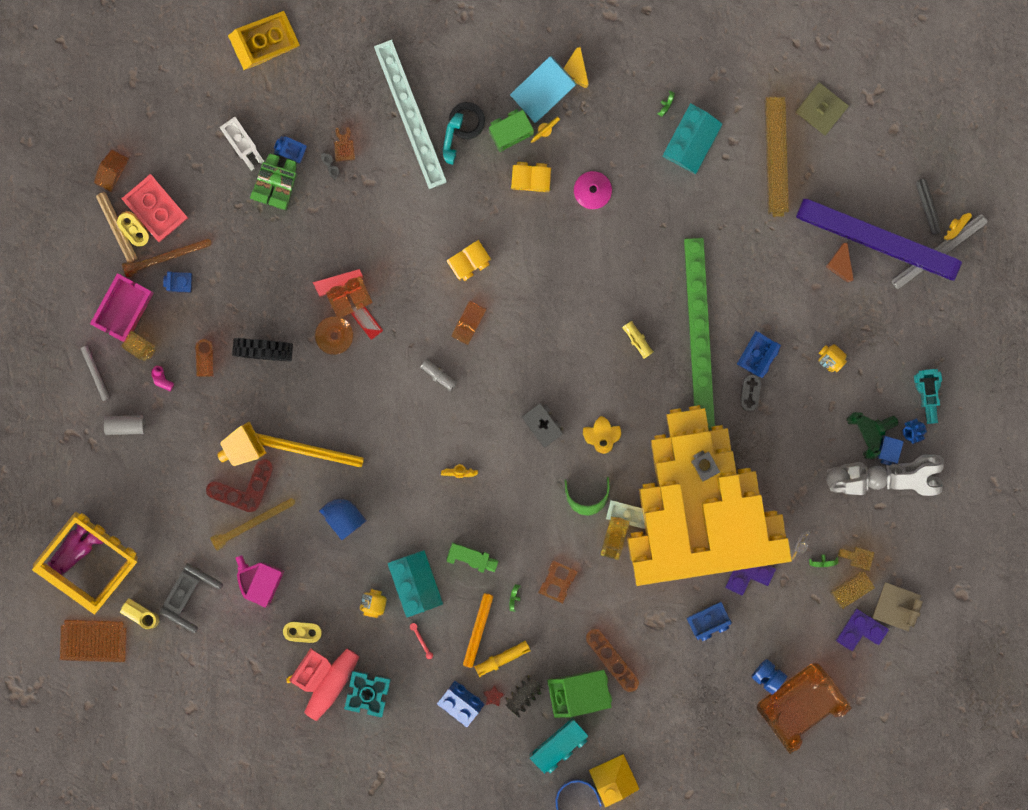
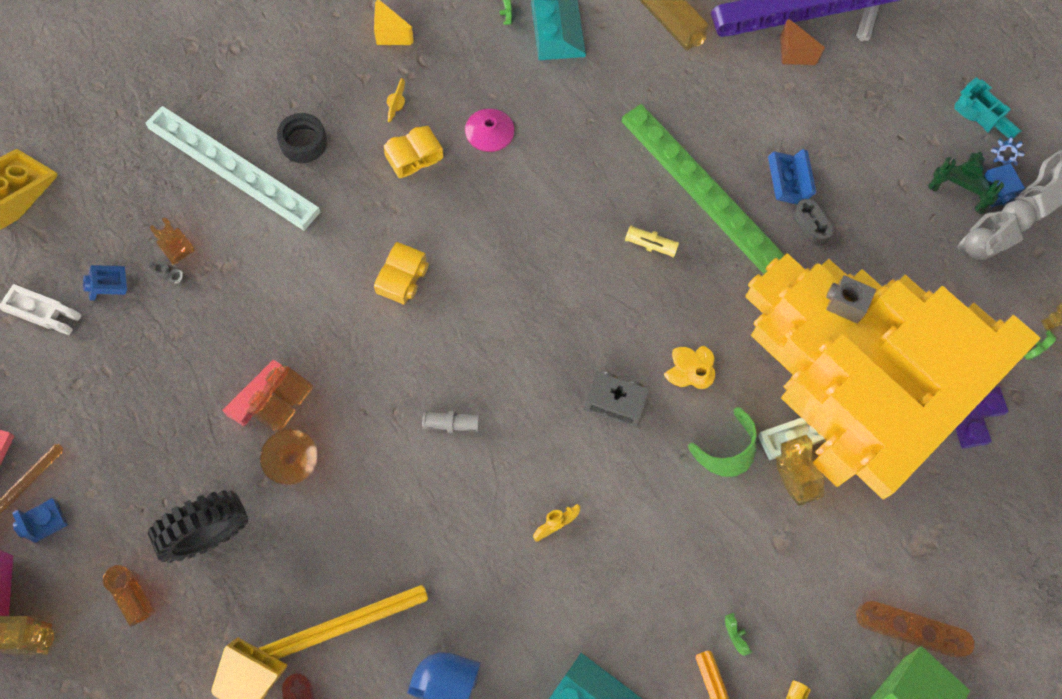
camera: 35 degrees left, 20 degrees down
(159, 378) = (79, 664): dark pink arm -> none
(275, 177) = (106, 329): bright green hips -> none
(366, 322) = (320, 418): sticker -> none
(448, 153) = (287, 137): teal bar -> none
(468, 322) = (447, 341): clear orange slope -> none
(472, 557) = (650, 616): bright green hips -> none
(510, 130) = (357, 112): bright green brick -> none
(543, 89) = (366, 60): medium azure tile -> none
(563, 584) = (782, 574): clear orange piece -> none
(709, 621) = (985, 497): blue bracket -> none
(832, 358) = (866, 134): yellow head -> none

